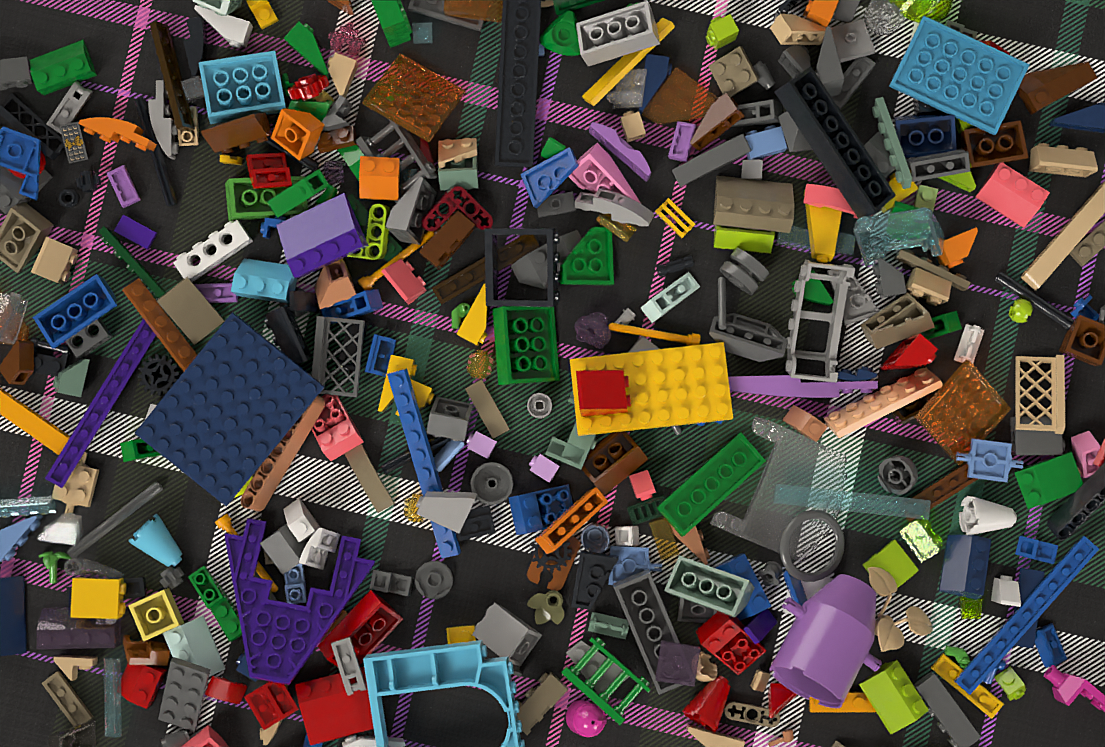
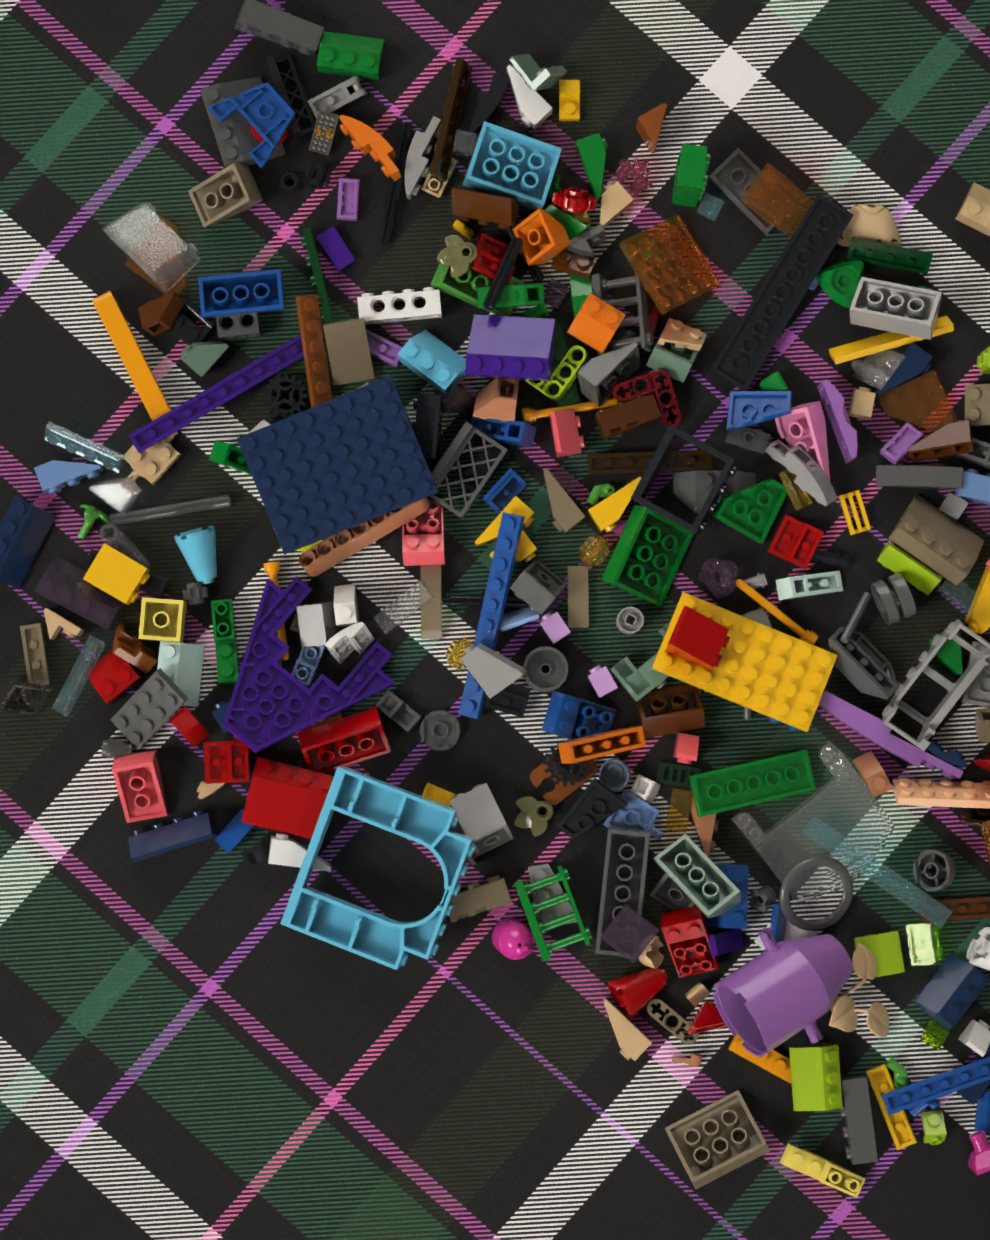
camera: 25 degrees right, 0 degrees up
(55, 261) = (247, 235): tan slope -> none
(233, 185) = (454, 256): none -> olive plate
(270, 223) = (469, 310): blue bracket -> none
(281, 178) = (502, 273): none -> black axle
(348, 495) = (403, 607): none -> clear tile
(348, 665) = (319, 765): light grey plate -> none
(435, 343) = (562, 507): none -> dark tan slope
(608, 625) = (582, 863): sand green hinge -> none
(640, 268) = (795, 542): none -> red slope

